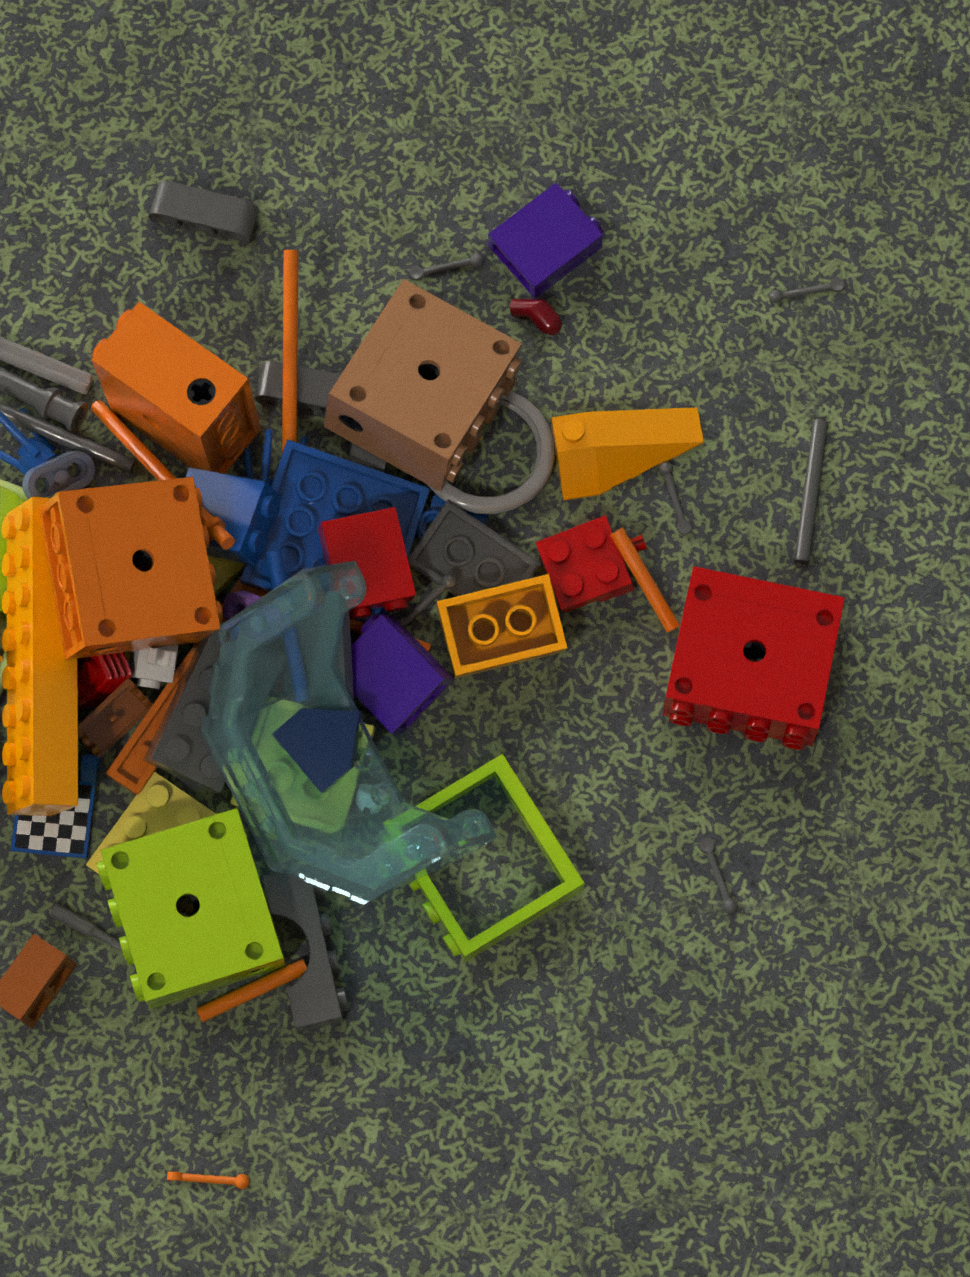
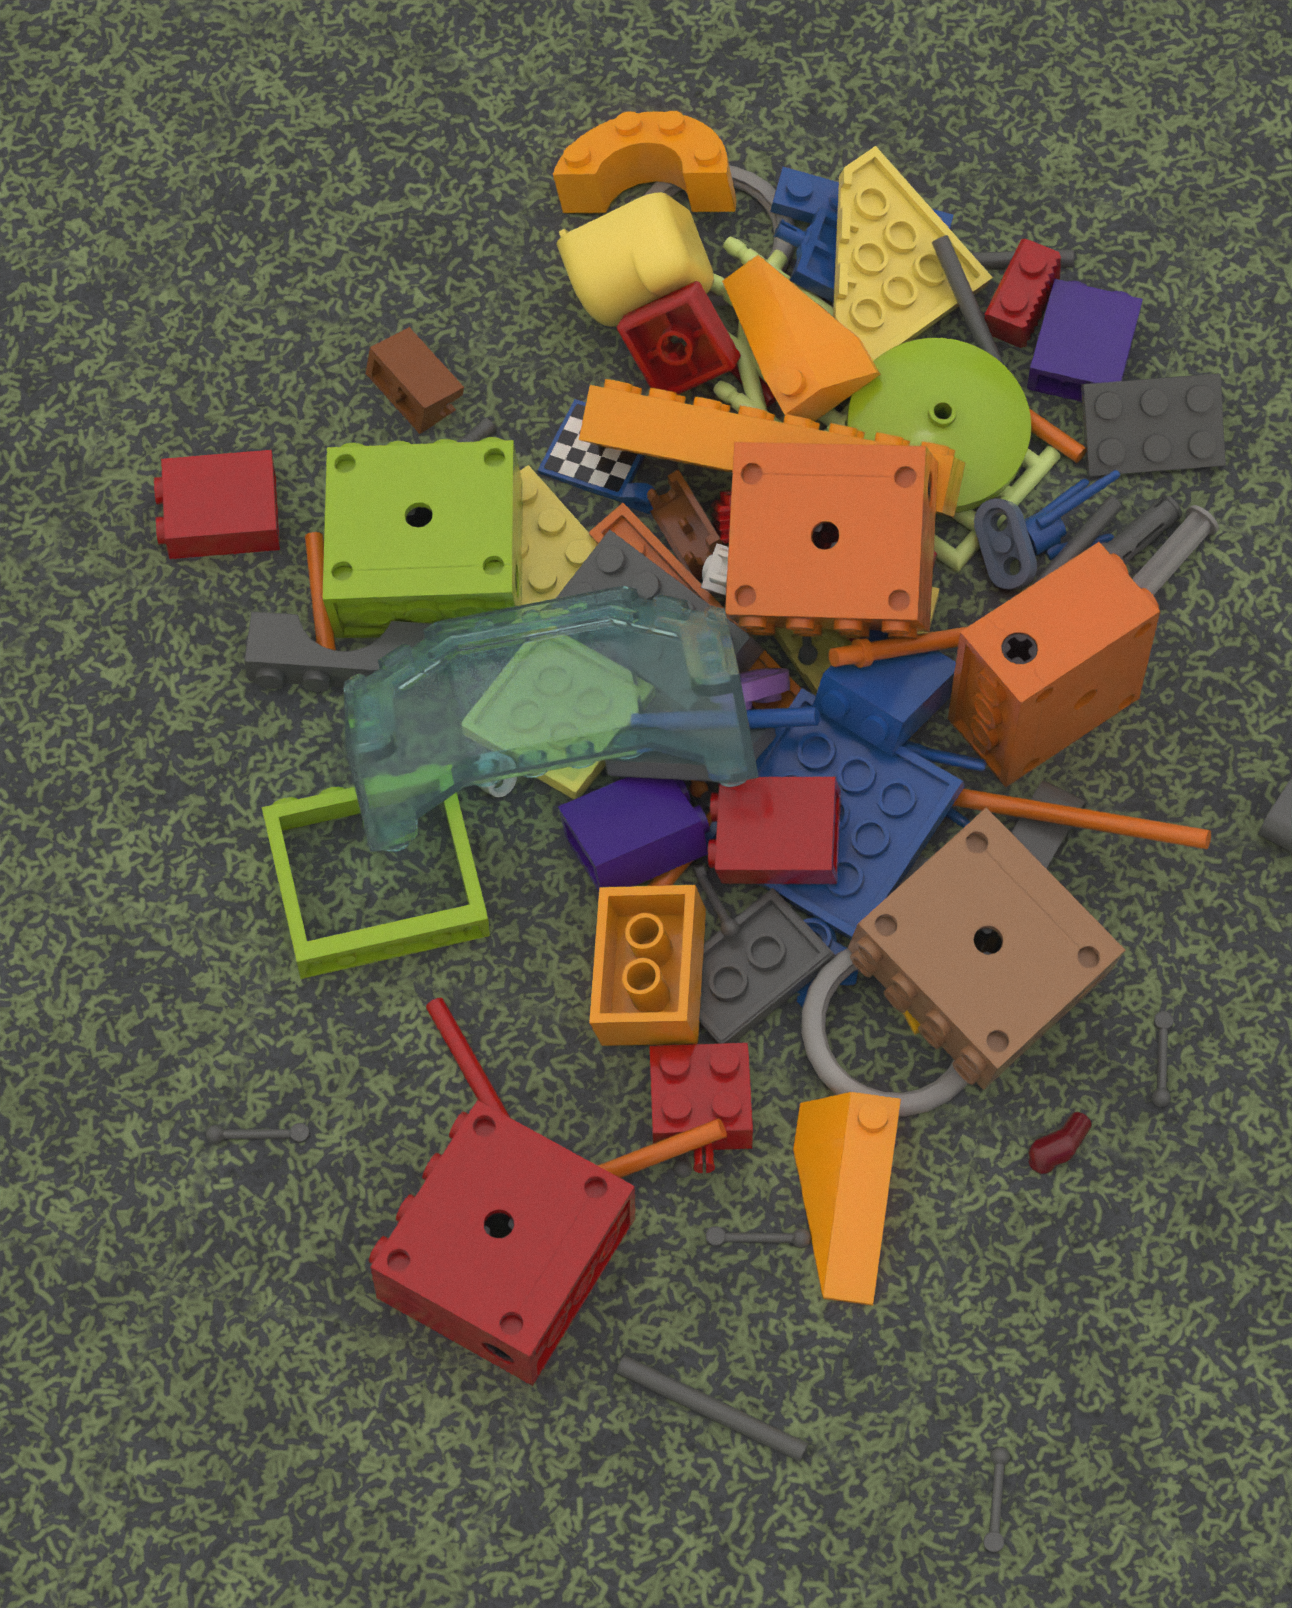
camera: 105 degrees right, 10 degrees down
(197, 1098) = (218, 504): none -> red brick
(240, 1181) = (114, 531): orange hinge -> none
(322, 743) = (561, 709): dark blue slope -> none
(546, 239) = (1160, 1182): dark purple brick -> none
(611, 742) = (464, 1055): none -> red bar

